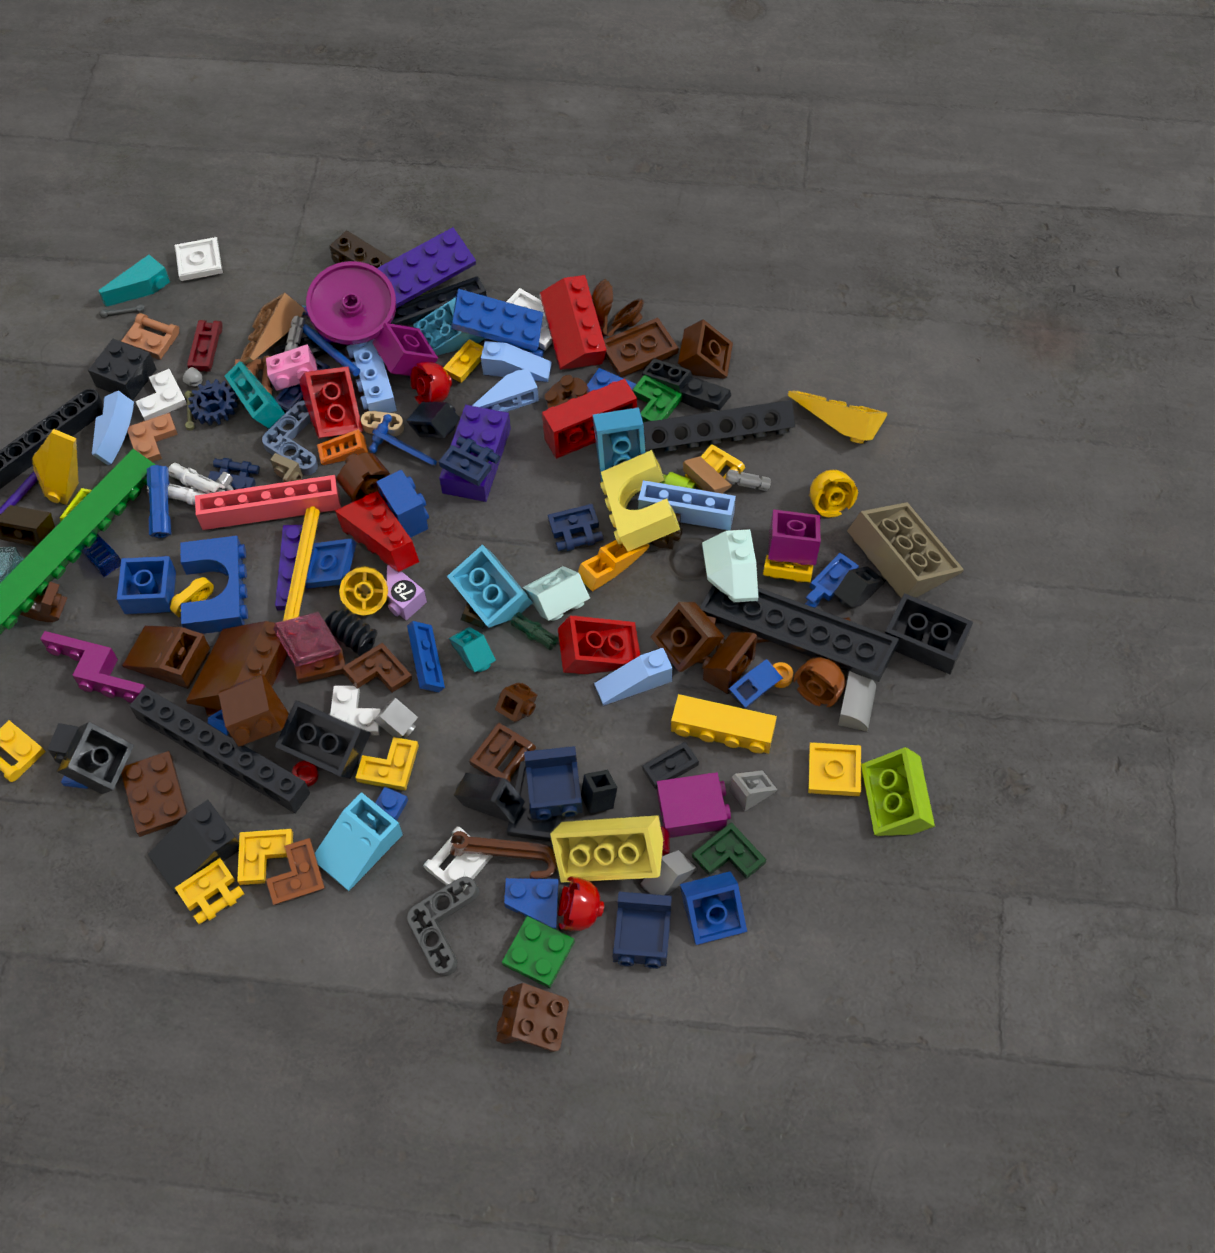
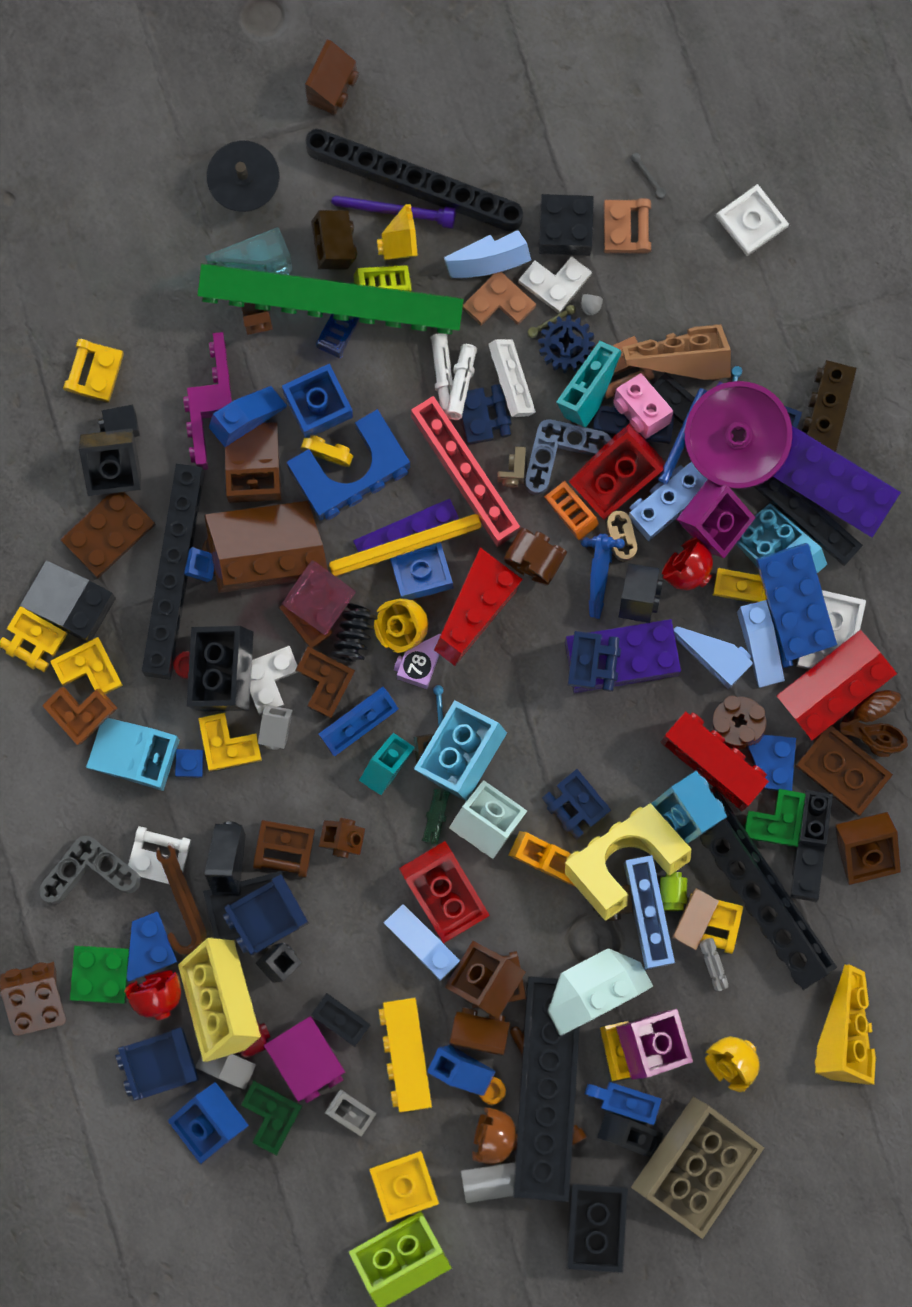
camera: 60 degrees right, 20 degrees up
(123, 644) = (245, 414): none -> blue slope
(138, 281) = (692, 174): teal slope -> none
(158, 496) = (401, 368): blue axle -> none
(204, 345) = (638, 292): dark red plate -> none
(215, 449) = (511, 378): none -> white plate
(225, 479) = (470, 411): light grey hand -> none
(252, 710) = (208, 592): reddish brown slope -> none
(295, 333) = (685, 387): light grey axle -> none
(404, 502) = (519, 613): blue brick -> none
(432, 593) = (438, 690): none -> dark azure hinge

